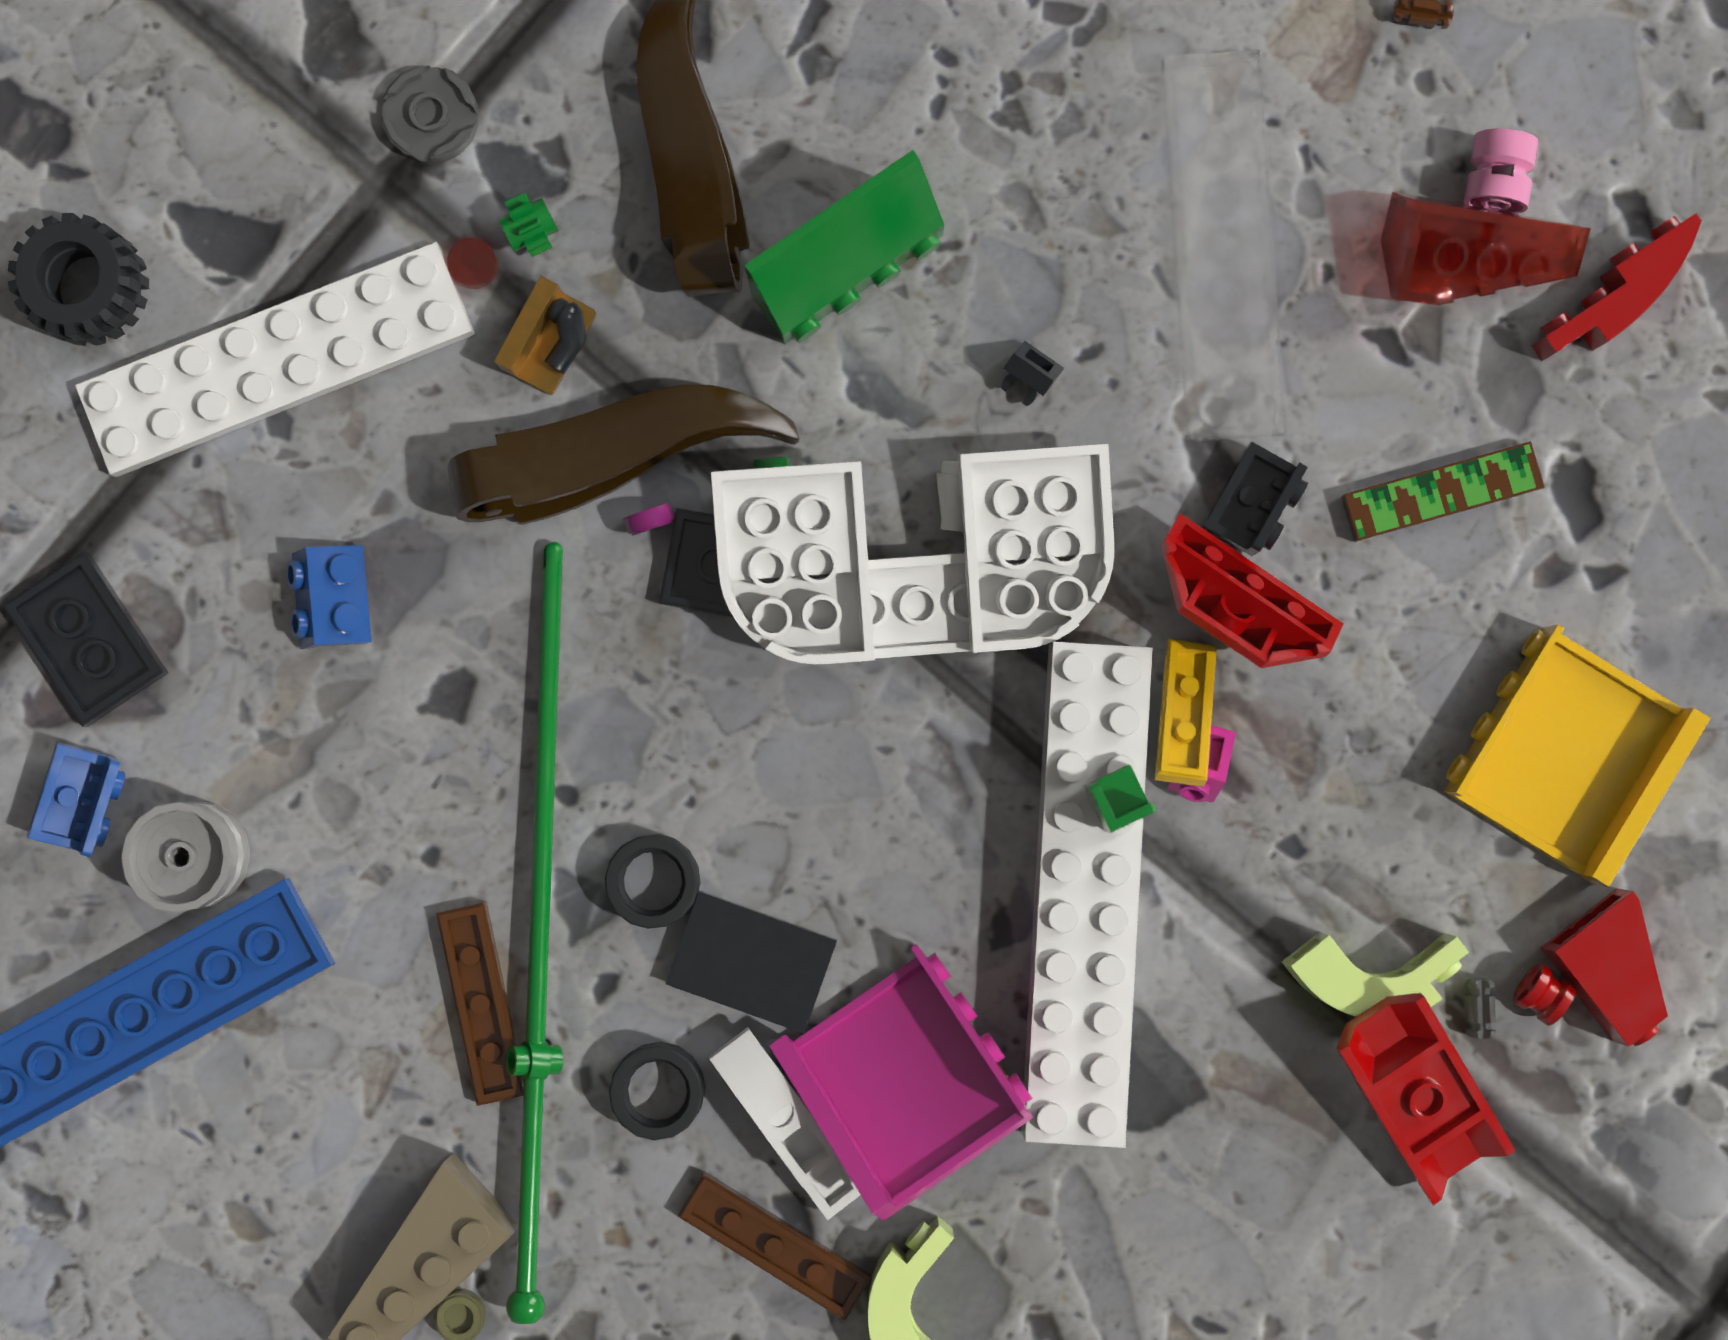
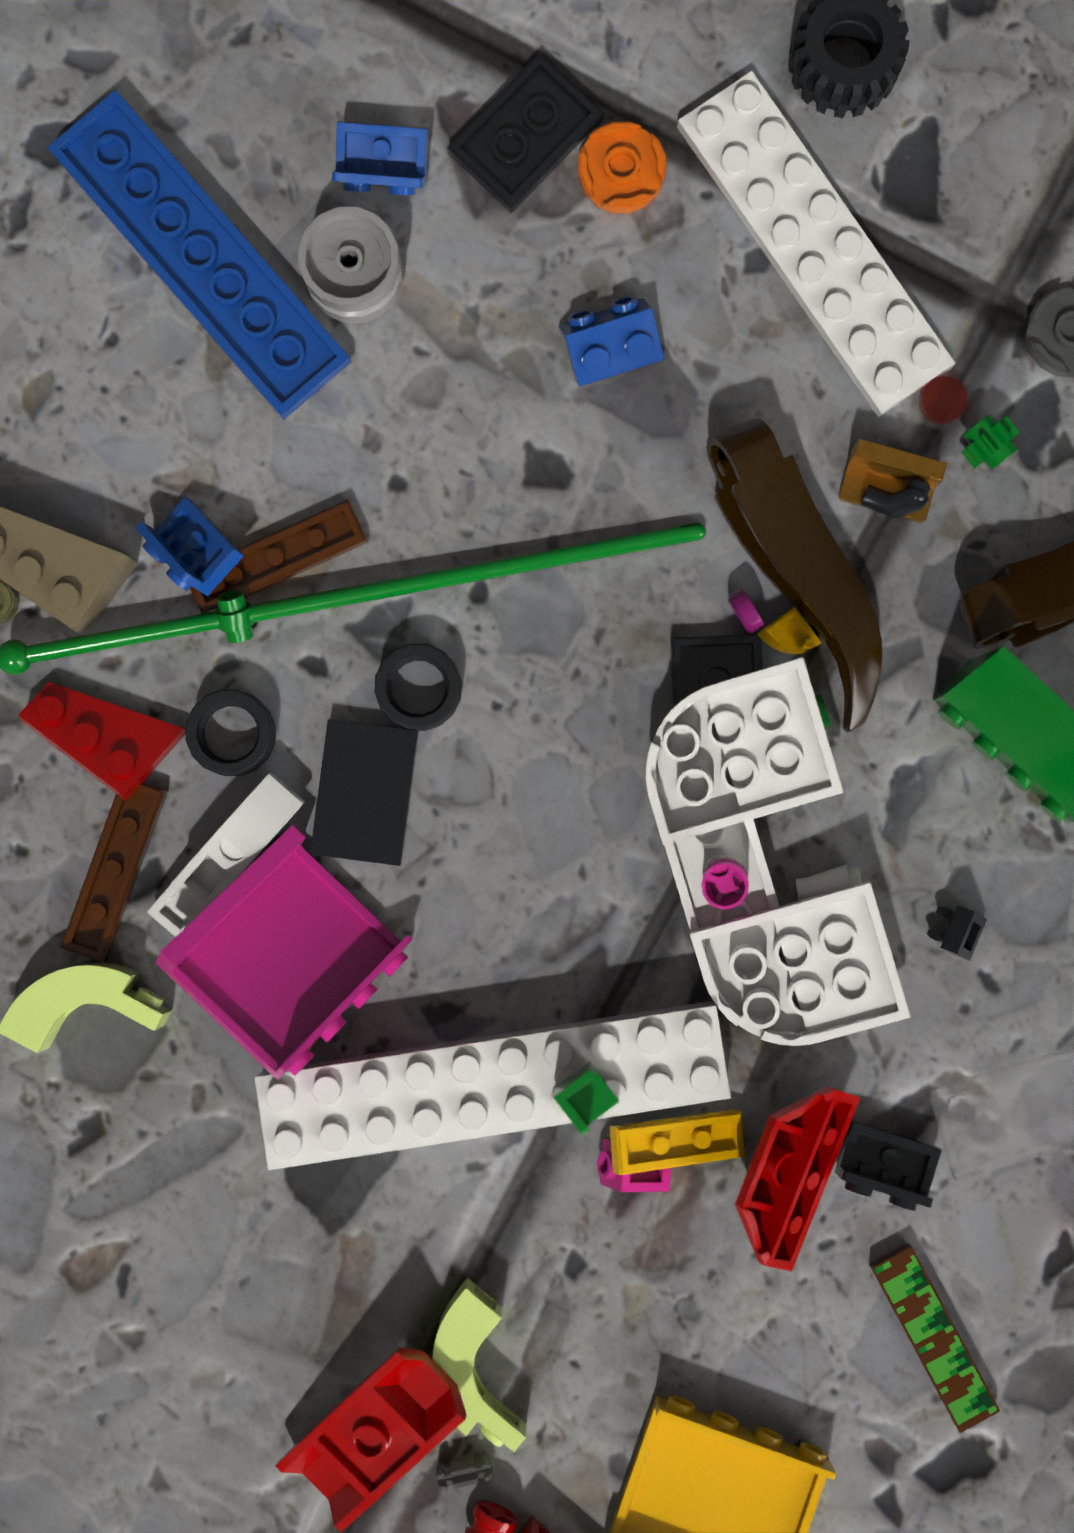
camera: 80 degrees right, 0 degrees up
(146, 545) = (621, 167): none -> orange tile
(450, 1090) = (191, 547): none -> blue bracket
(631, 1230) = (101, 737): none -> red wing
(683, 477) = (790, 634): none -> yellow tile
(935, 608) = (723, 890): none -> dark pink wheel

